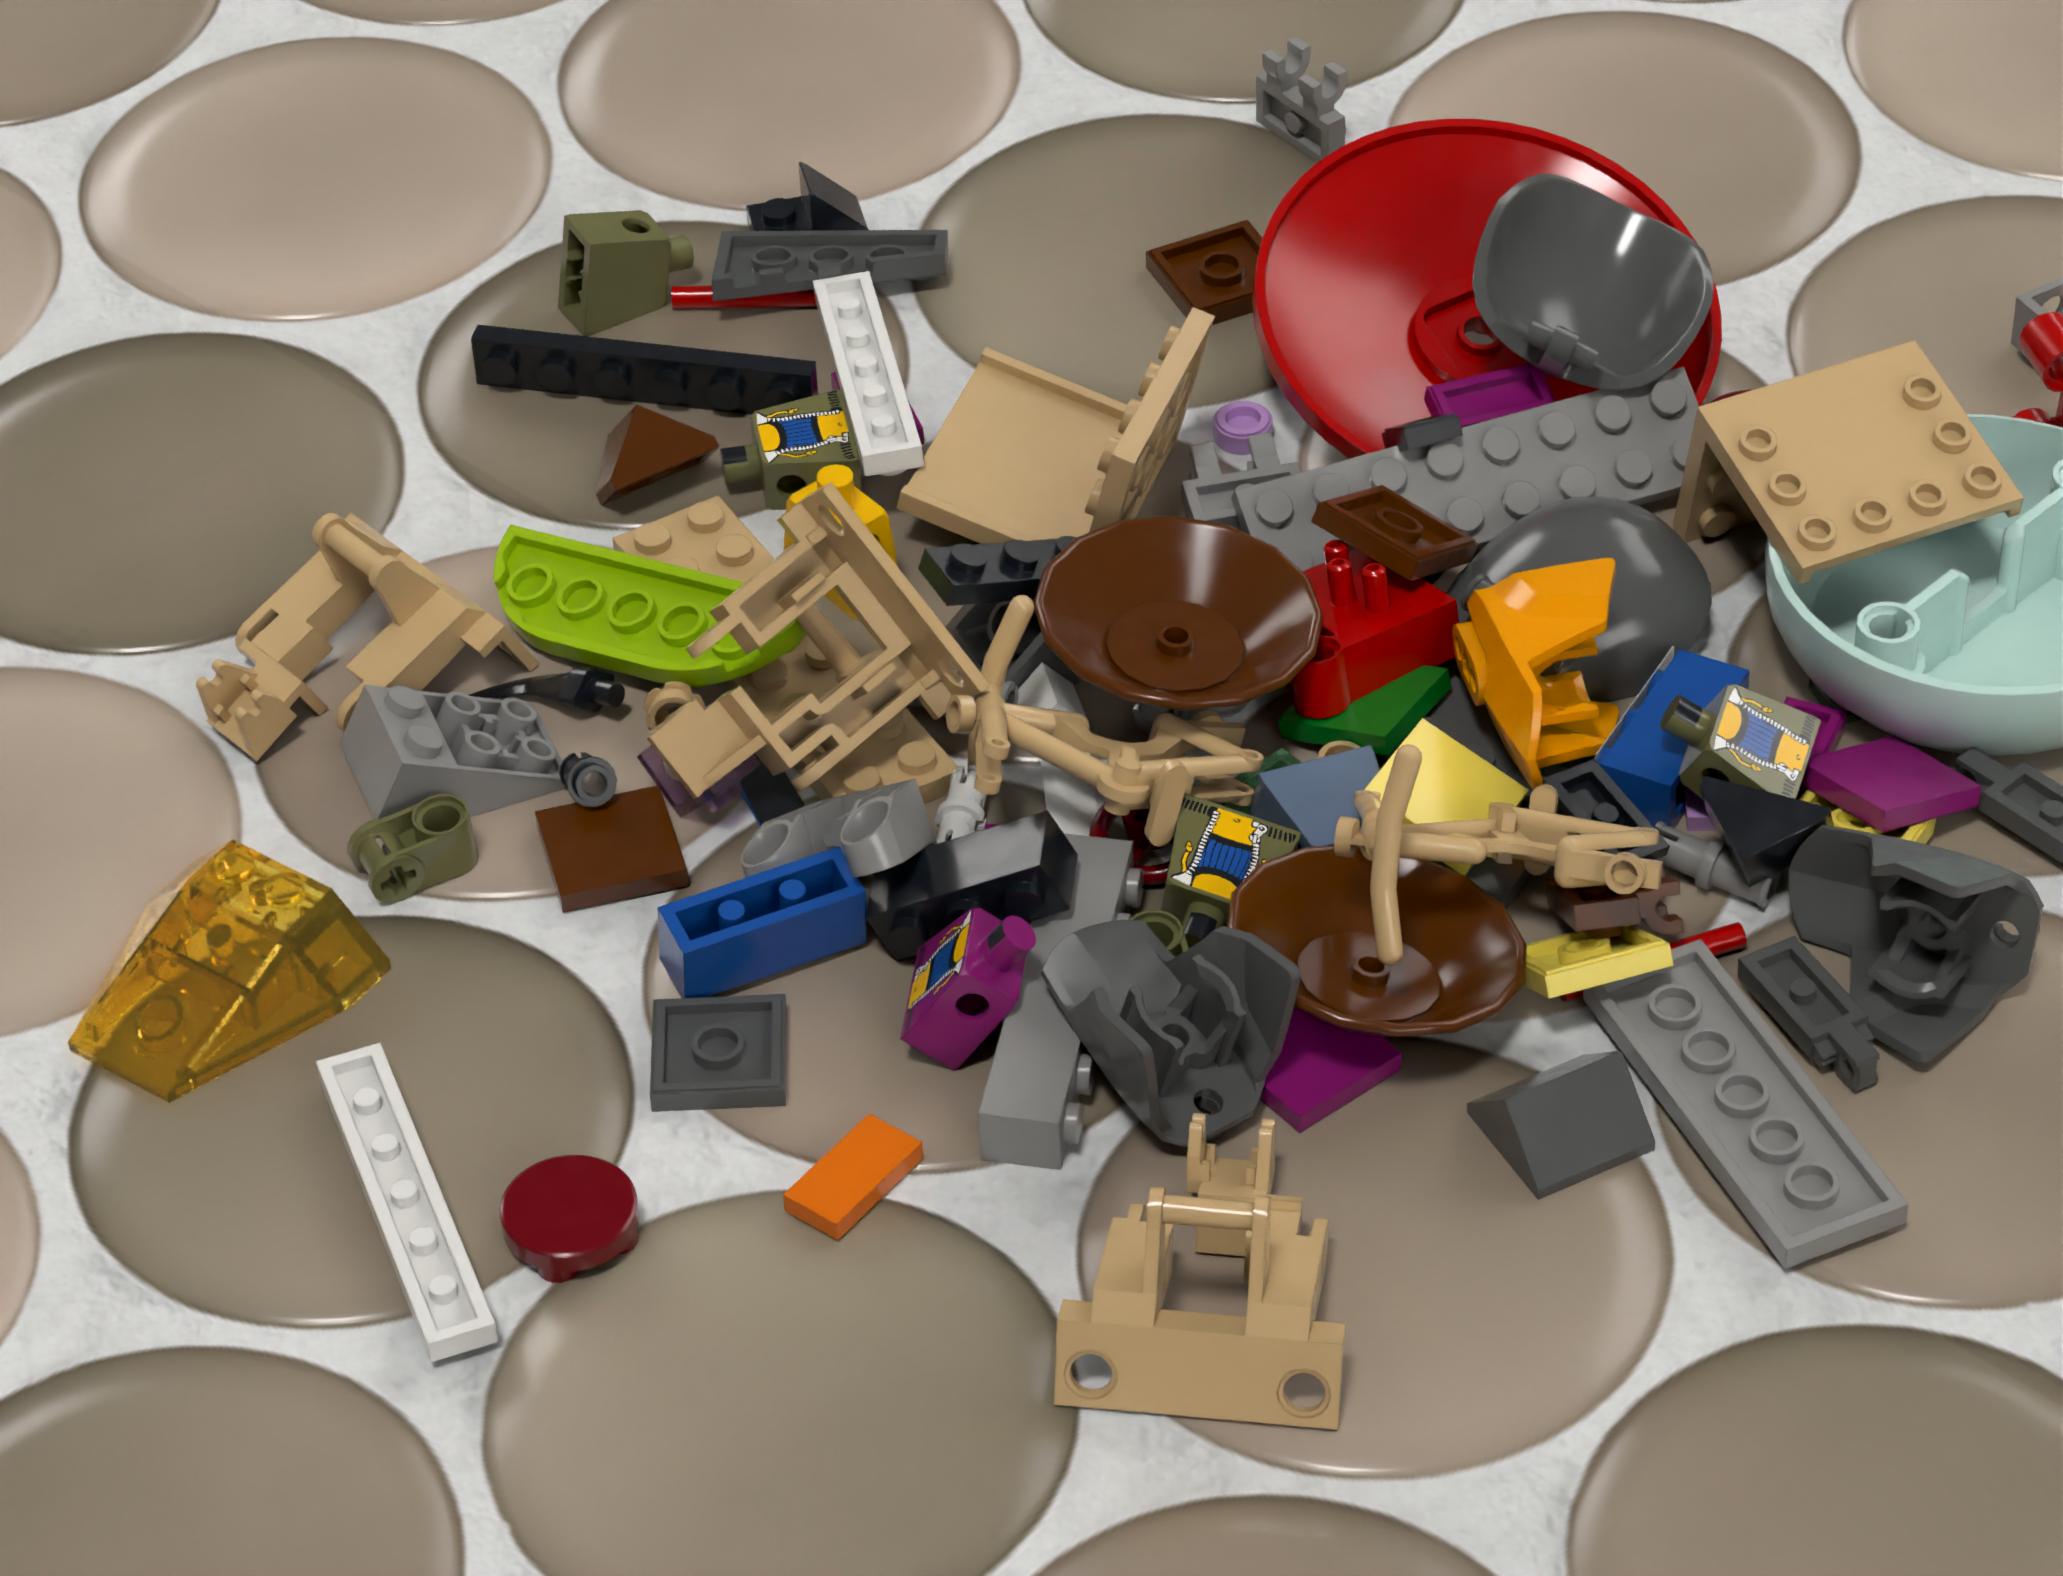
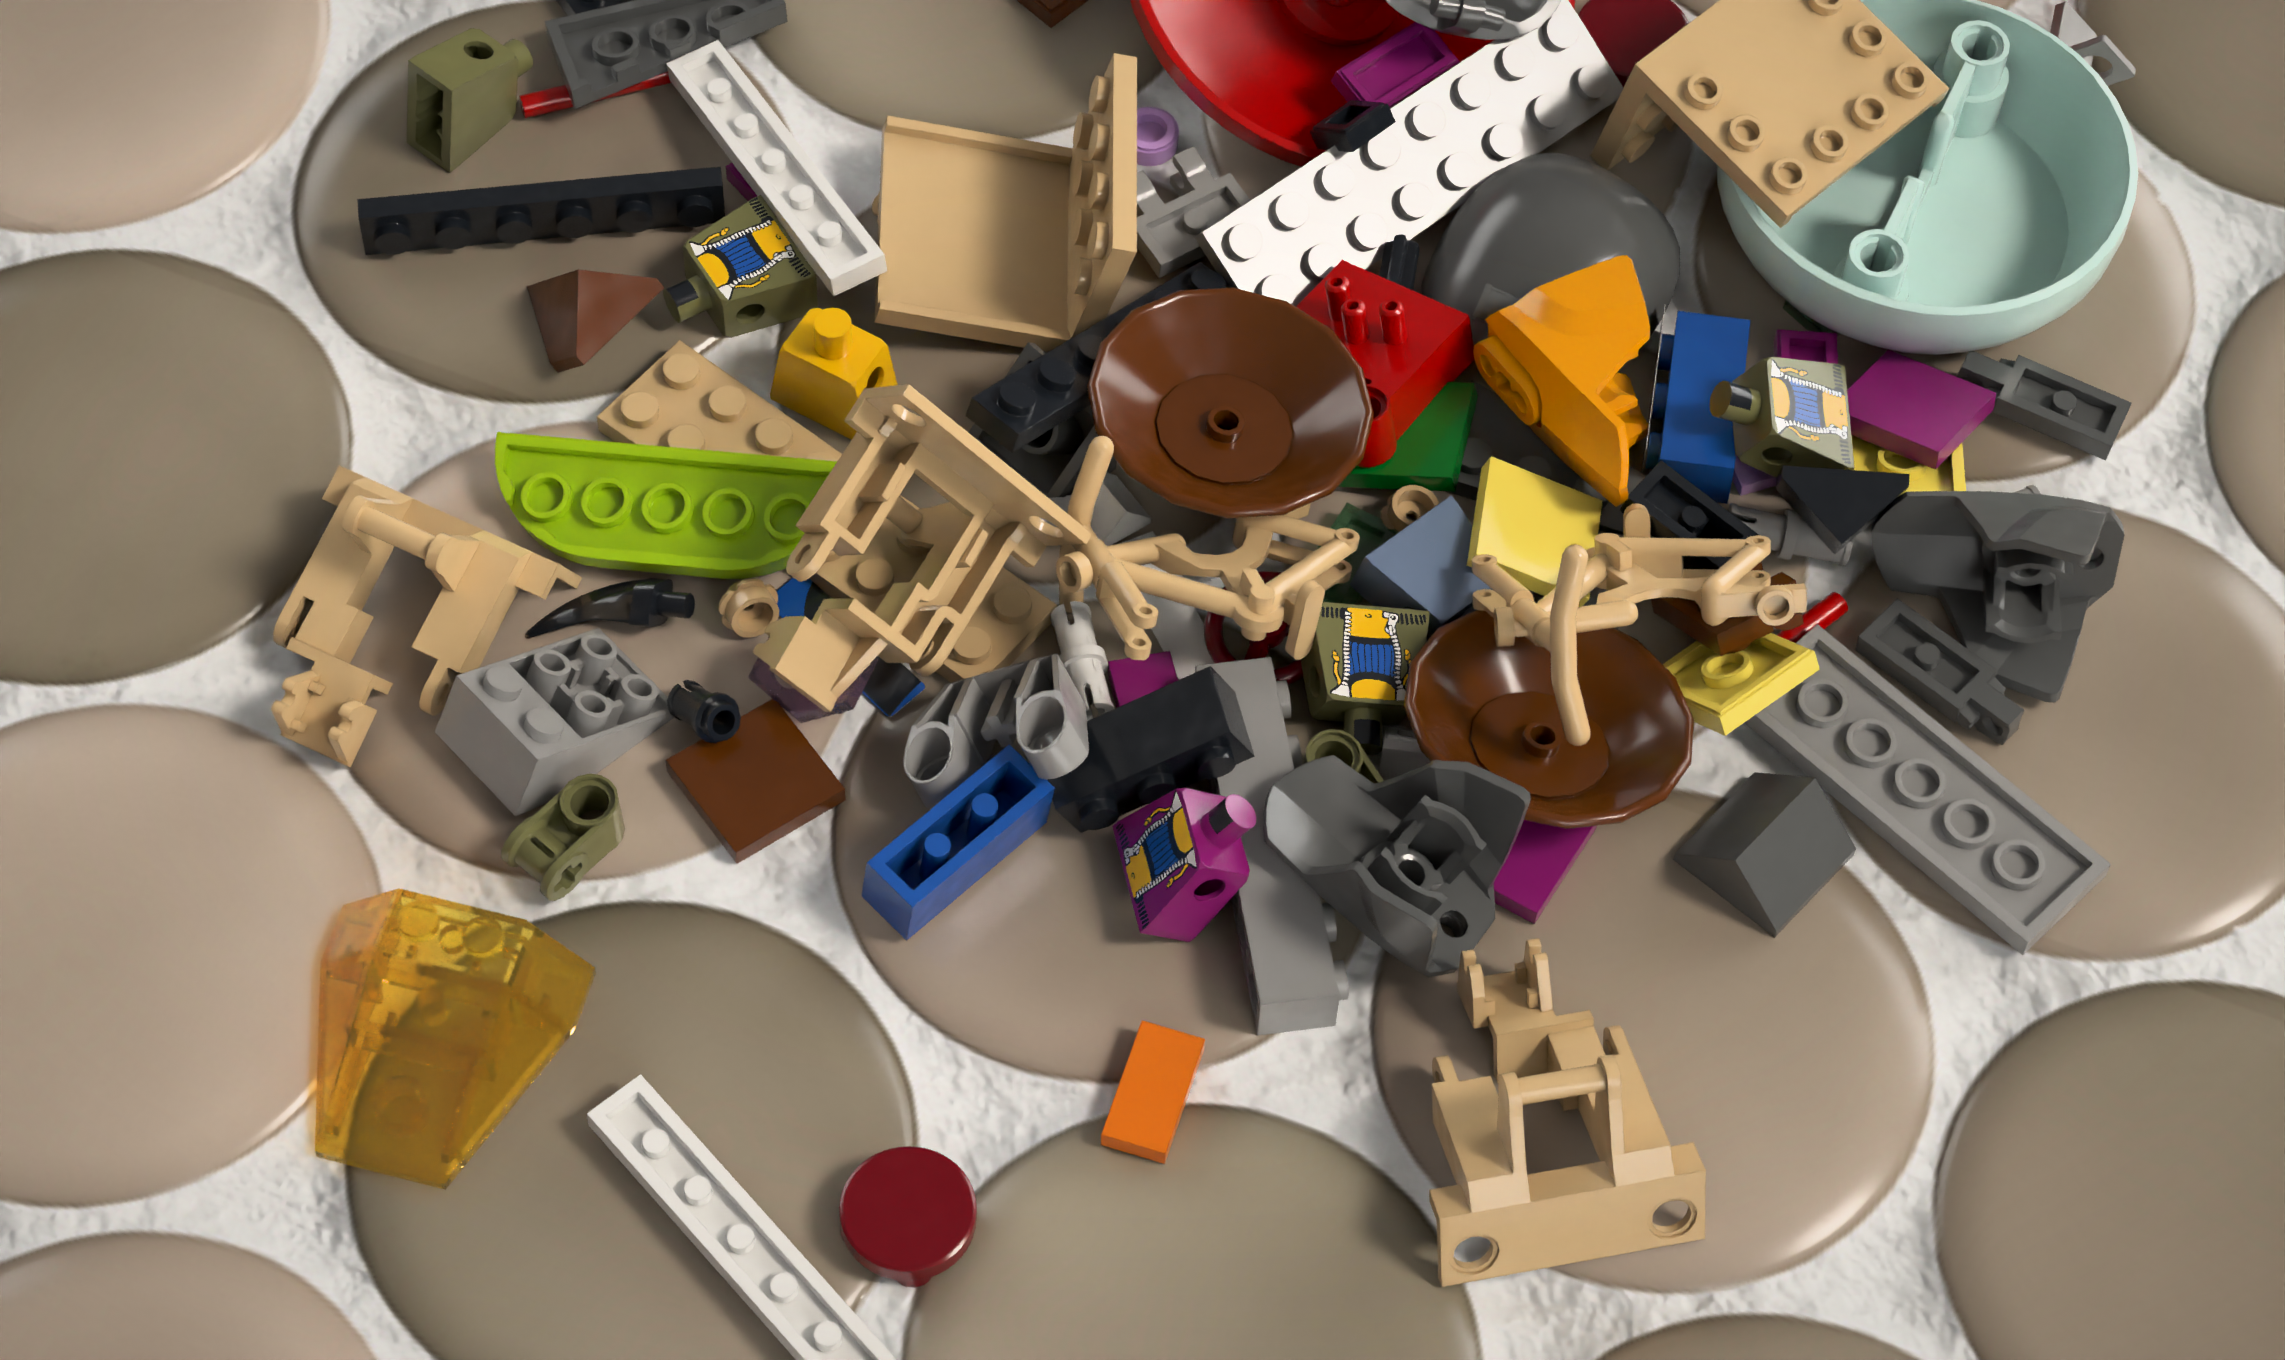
camera: 25 degrees left, 15 degrees up
(718, 1052) = (963, 986): dark grey tile -> none
(1395, 532) = (1380, 251): reddish brown tile -> none

